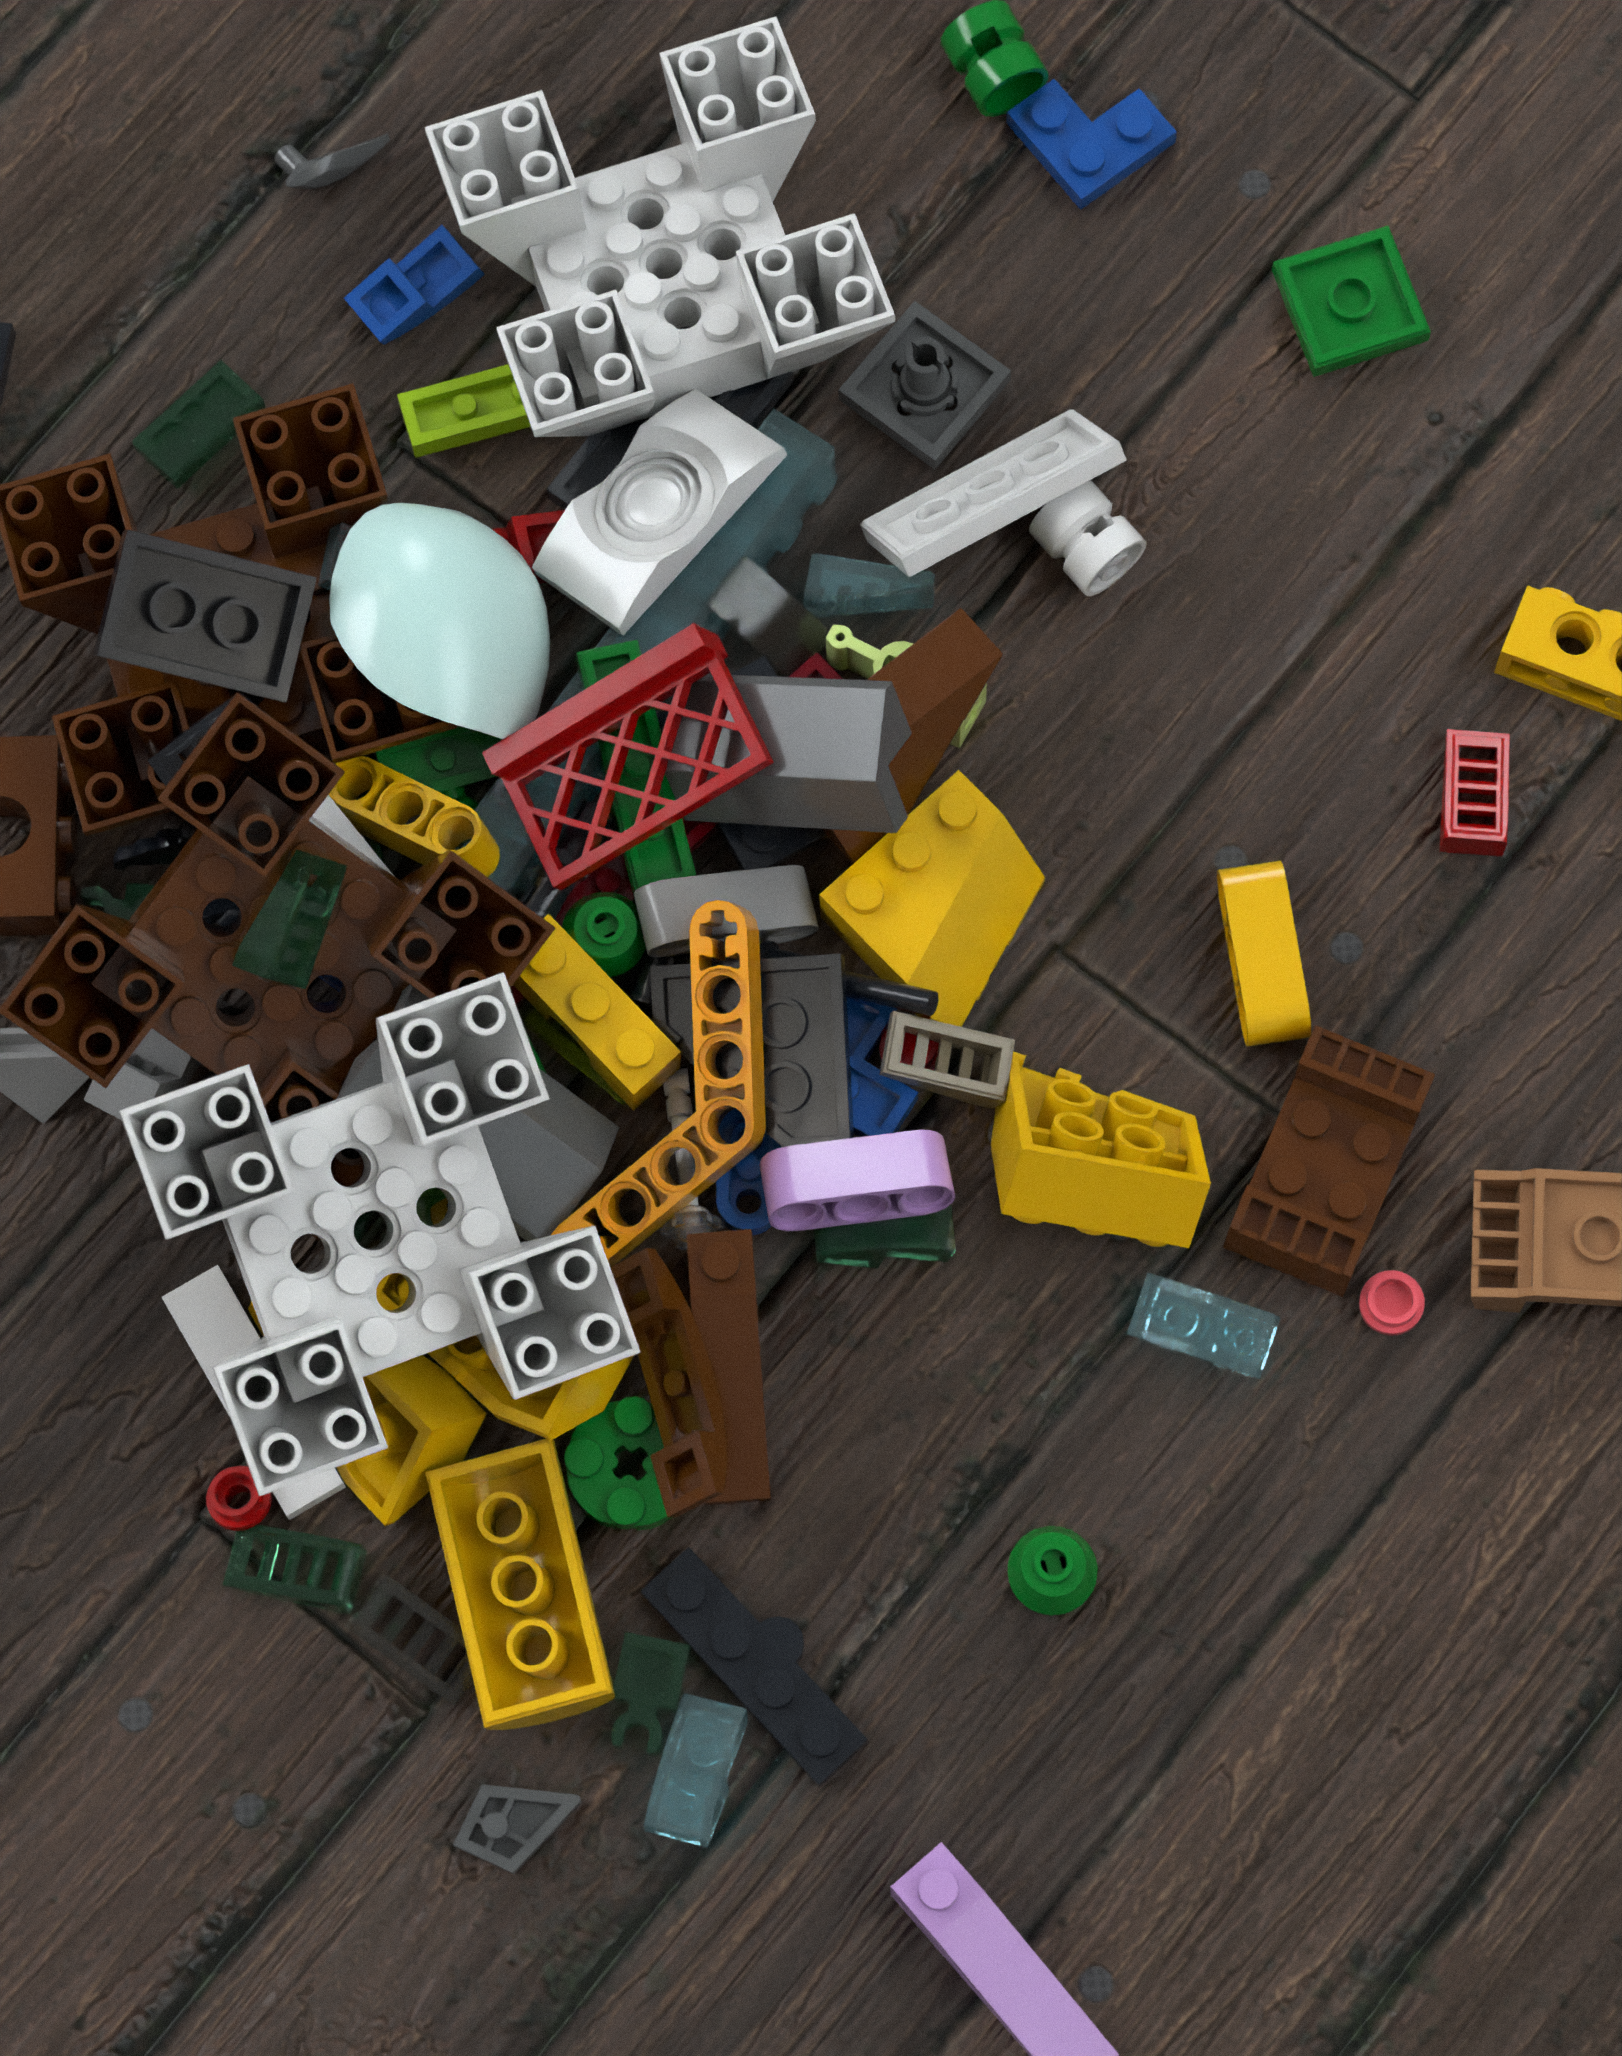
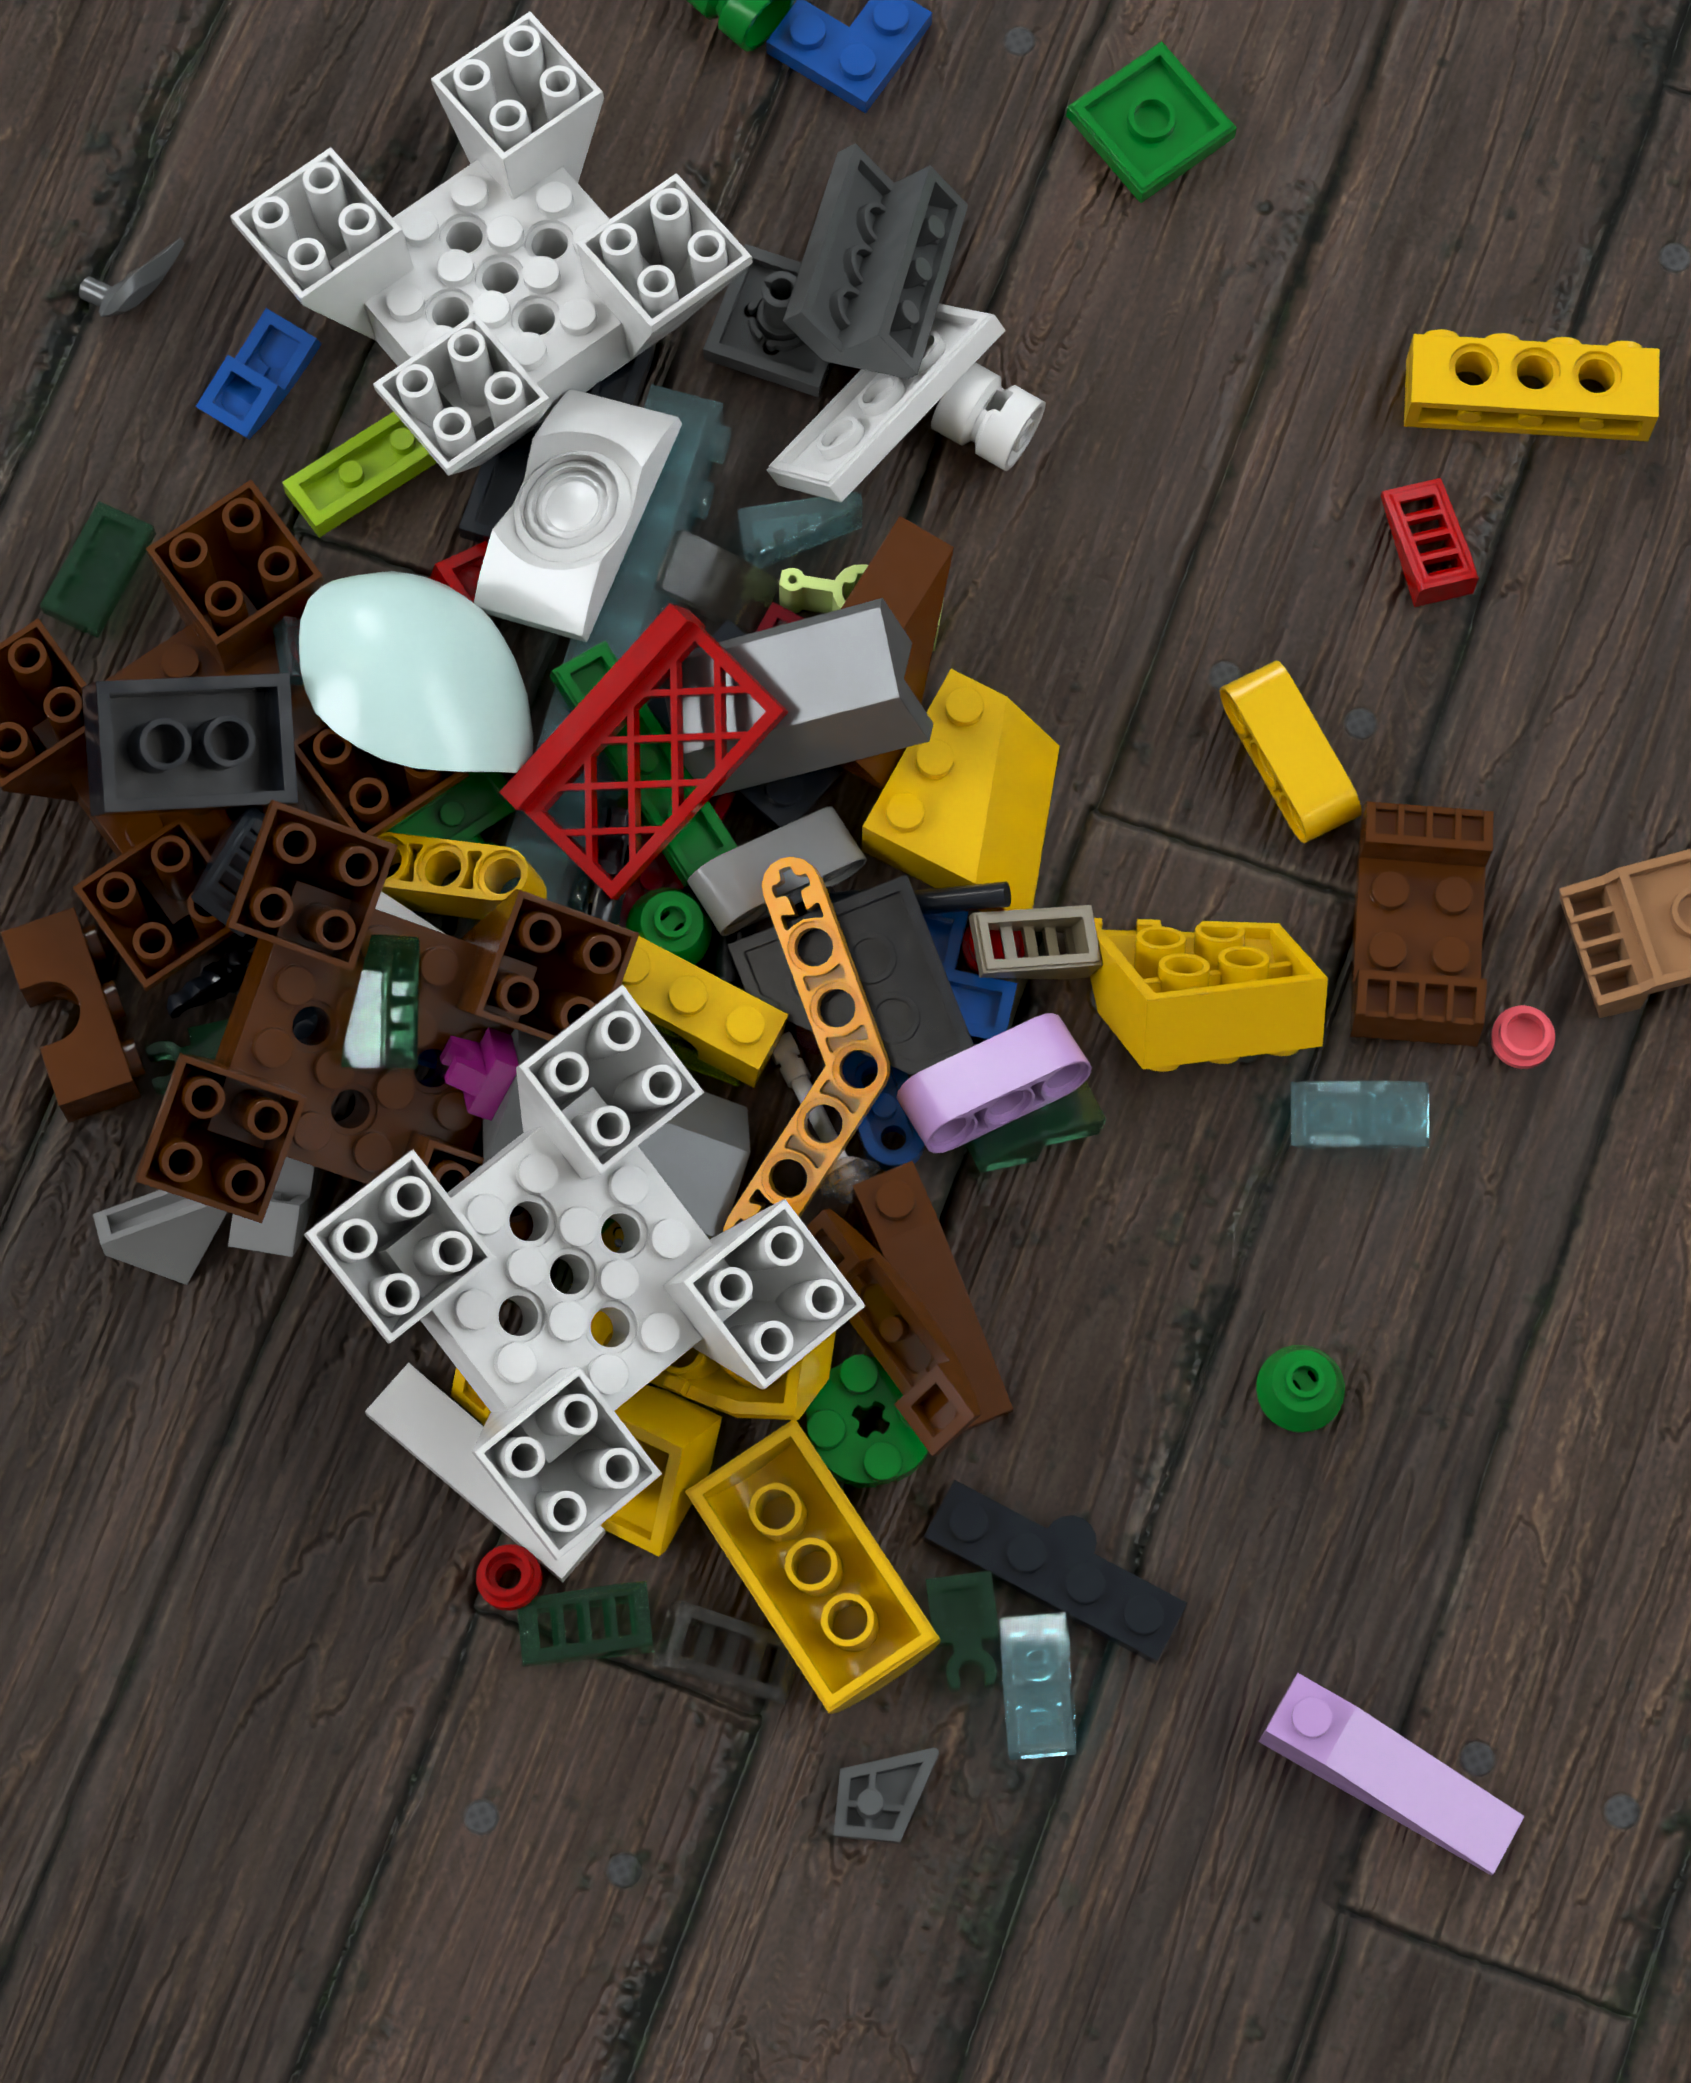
camera: 25 degrees left, 0 degrees up
(359, 1004) = (481, 1070): none -> magenta tile
(1027, 359) = (875, 266): none -> dark grey slope

